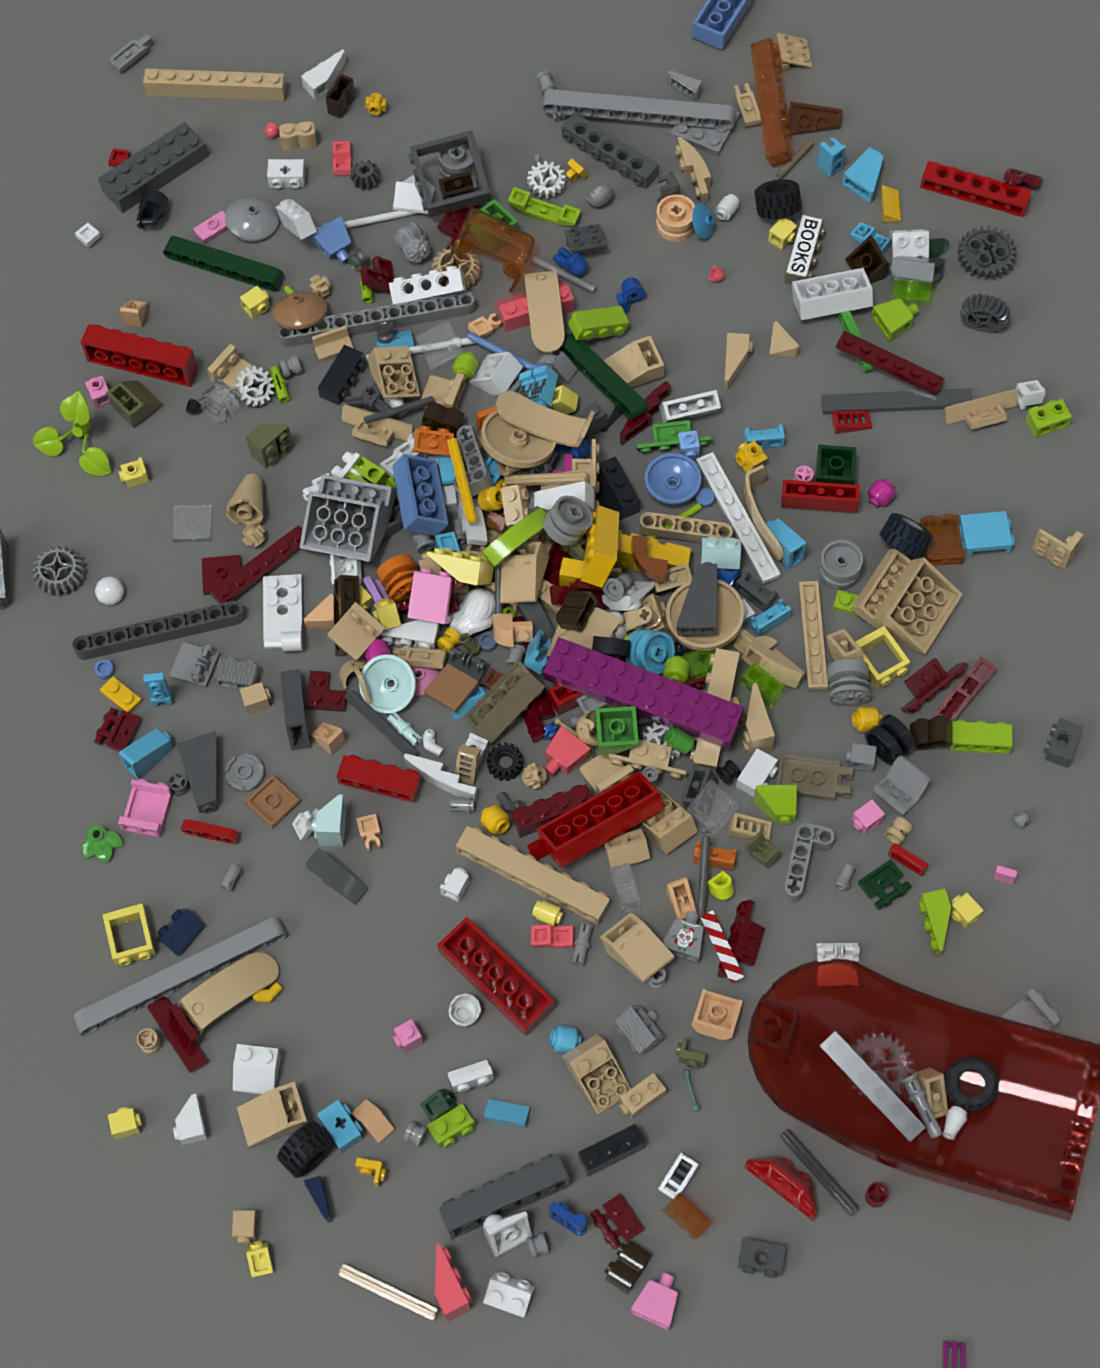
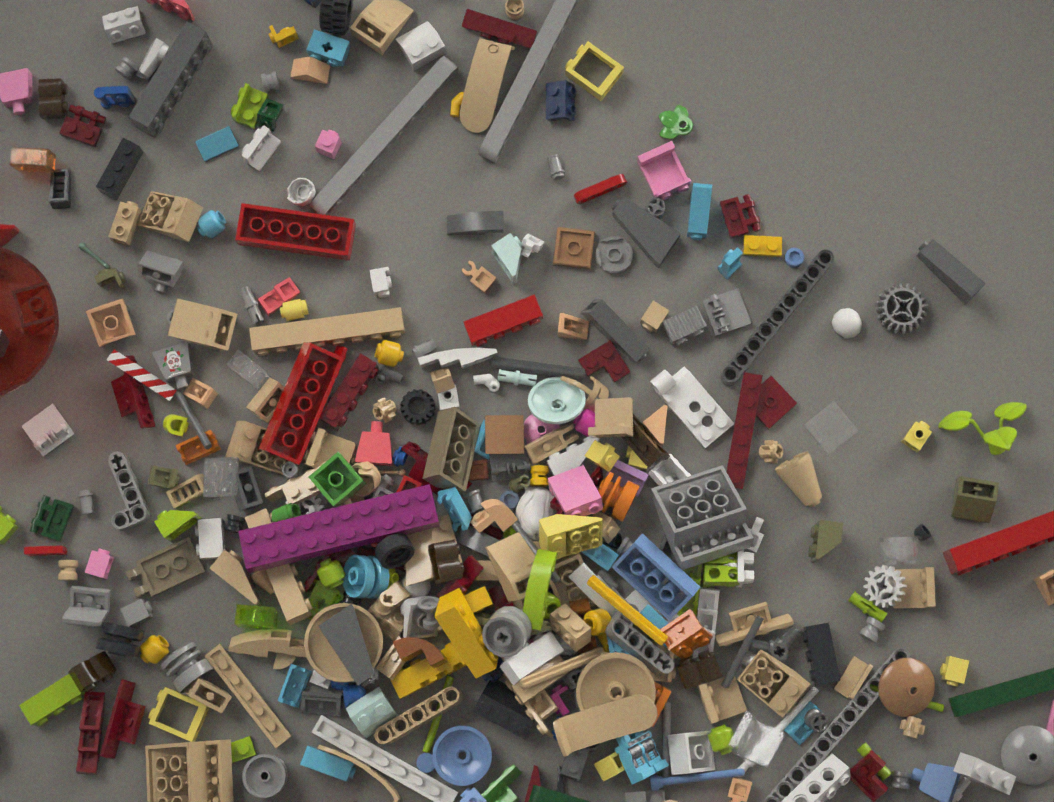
camera: 145 degrees right, 15 degrees up
(97, 389) = (1012, 487): bright pink brick -> none
(352, 1009) = (384, 136): none -> light grey beam

